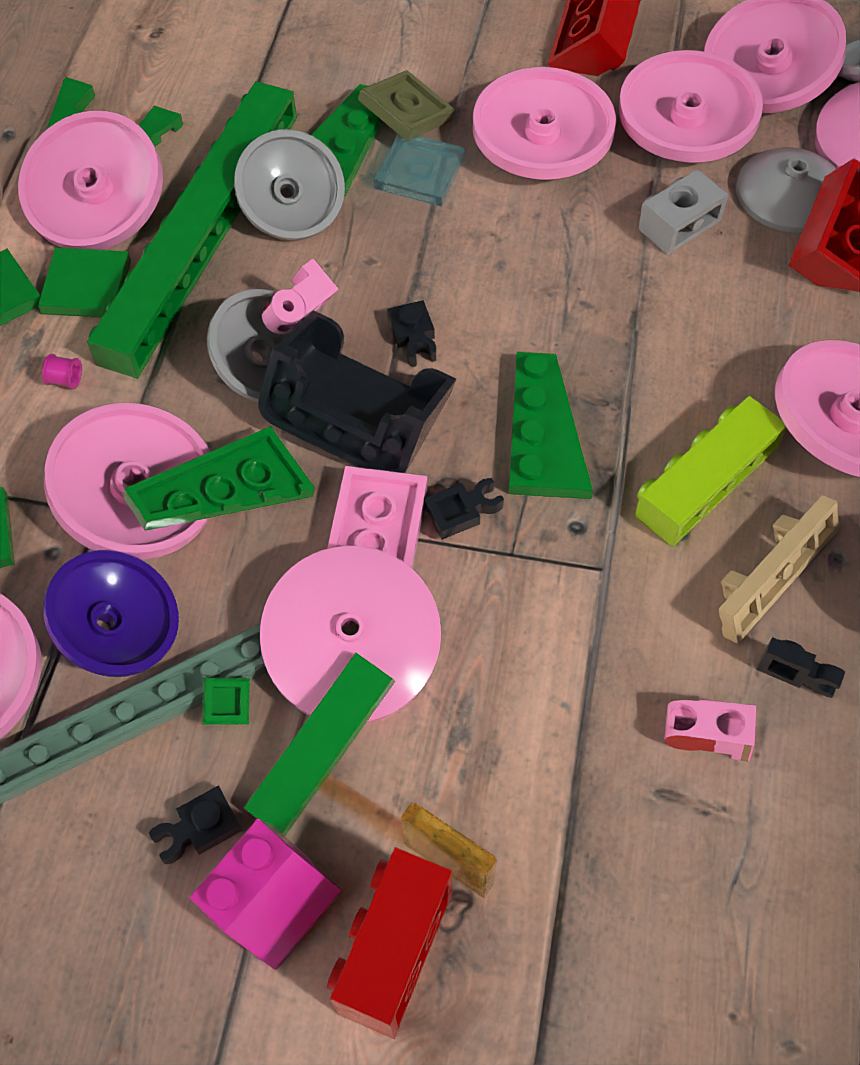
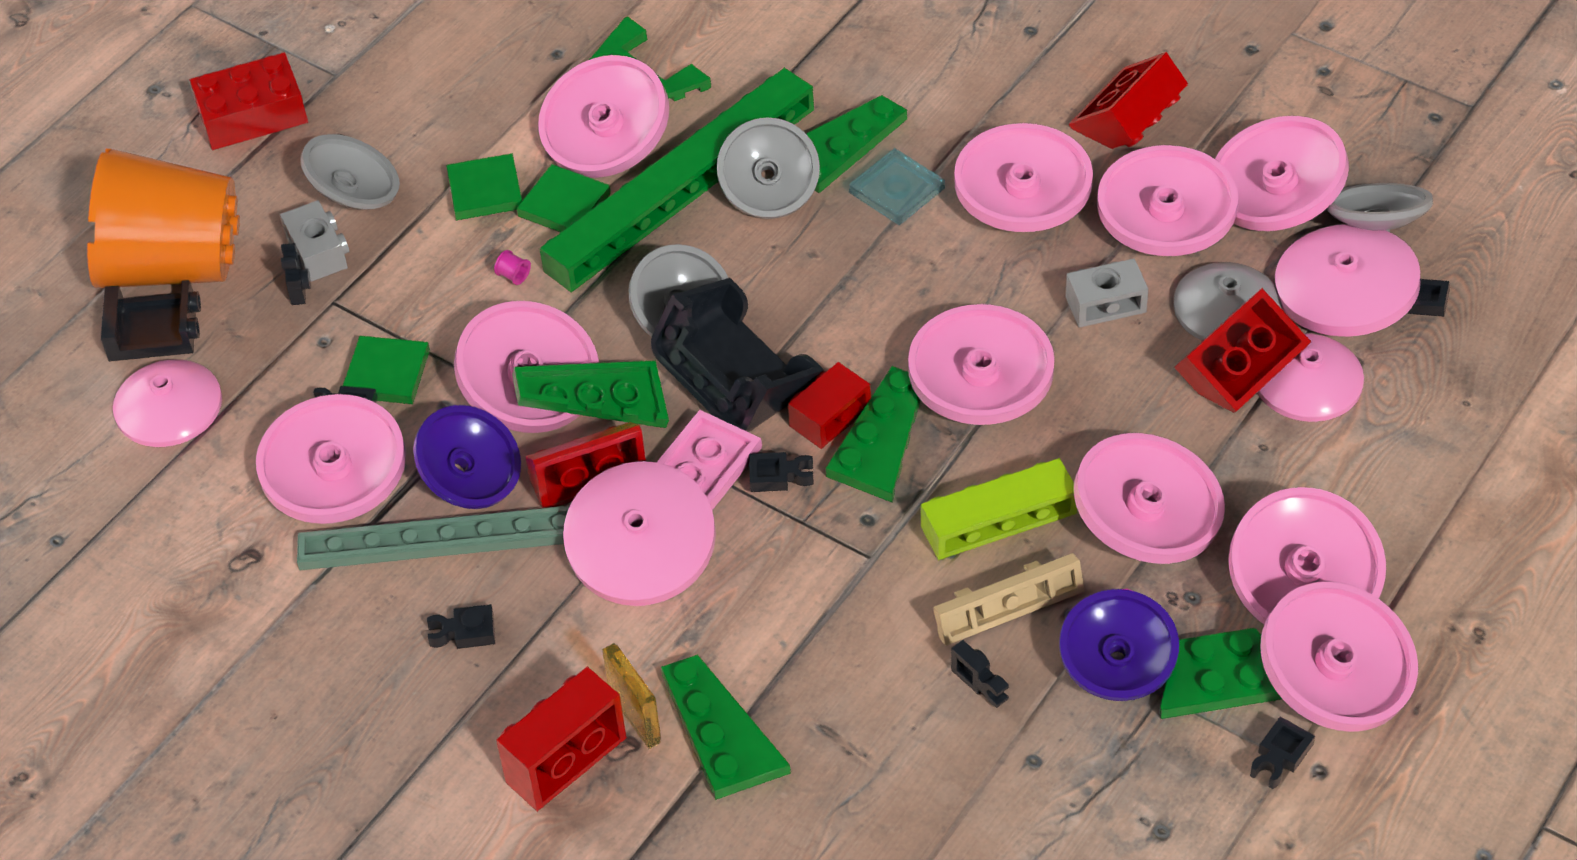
camera: 25 degrees right, 10 degrees down
(226, 701) = (524, 549): green tile -> none
(248, 570) = (565, 469): none -> red slope
(266, 894) = (489, 680): dark pink slope -> none
(292, 306) = (734, 263): bright pink leg -> none
(320, 744) = (577, 598): green tile -> none
(406, 105) = (911, 126): olive tile -> none
(413, 329) = (816, 321): black plate -> none
(476, 414) = (828, 405): none -> red brick
(563, 850) = (721, 732): none -> green wing
(610, 322) = (981, 364): none -> bright pink dish
(711, 727) = (885, 692): bright pink leg -> none

